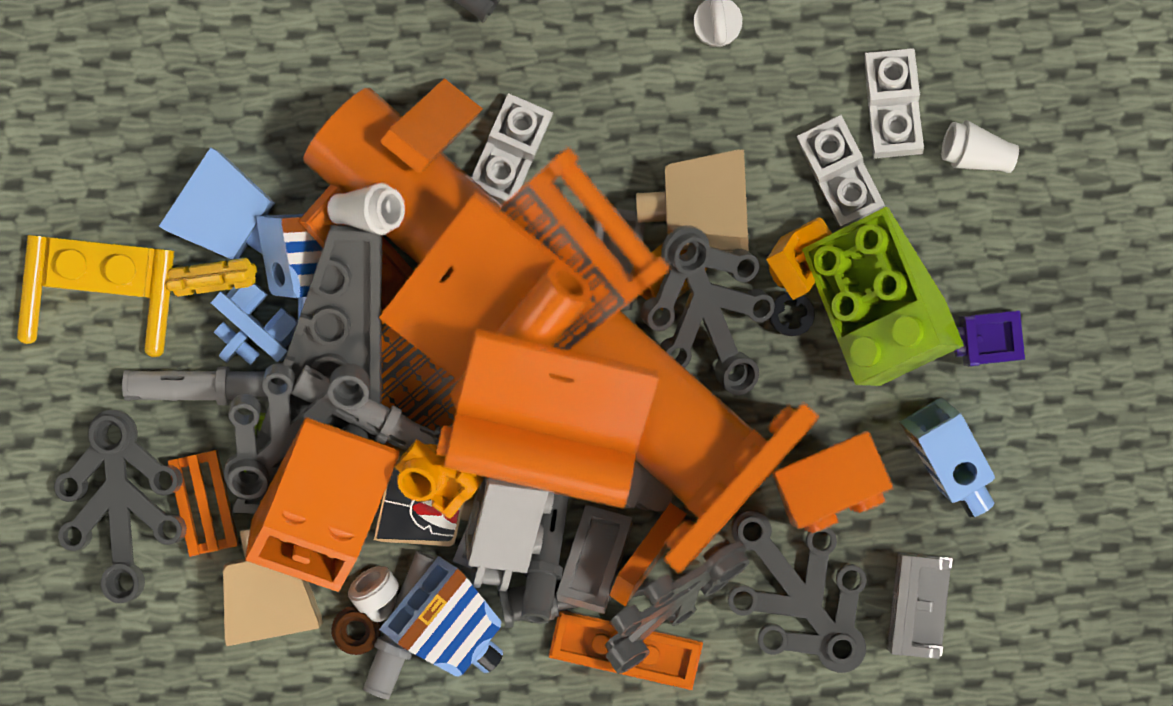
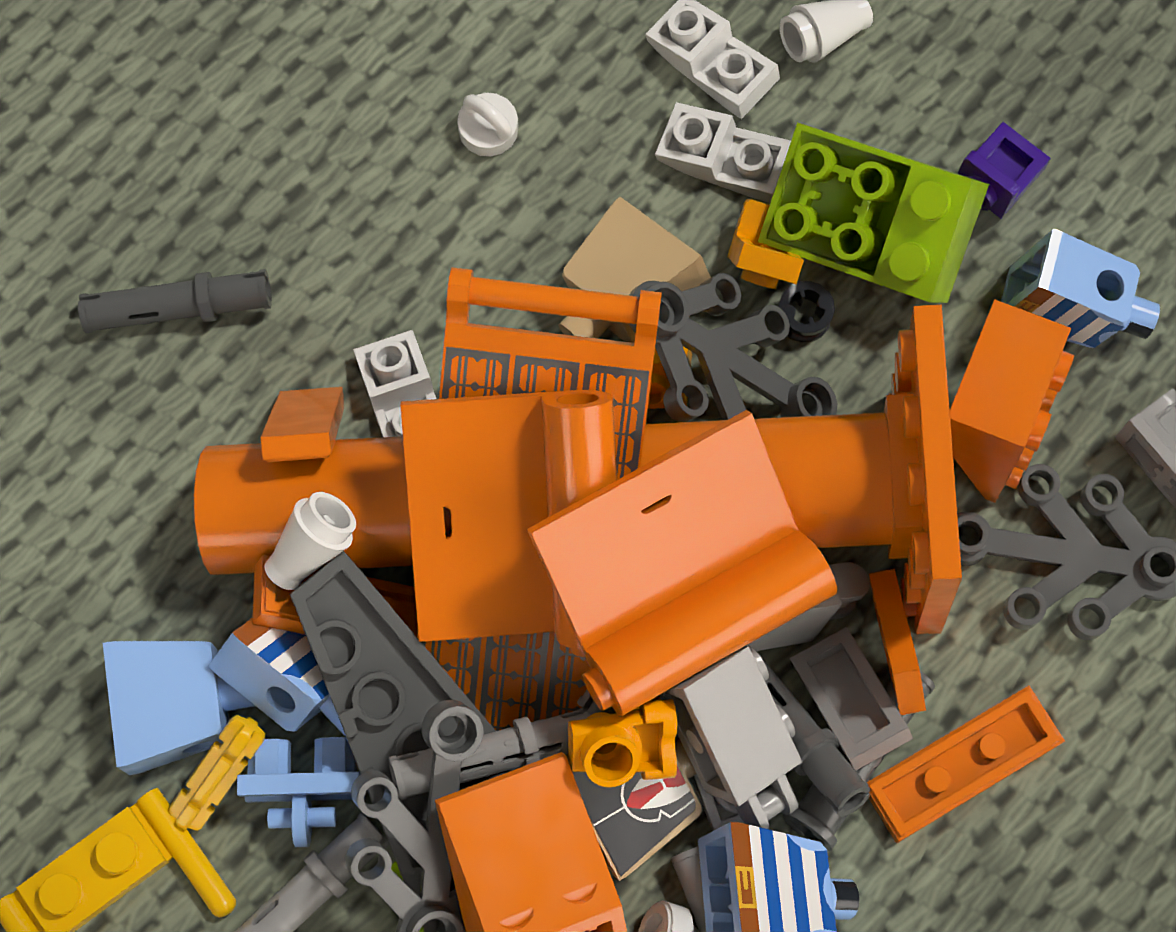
camera: 45 degrees left, 15 degrees down
(671, 602) = (964, 642): dark grey plant -> none

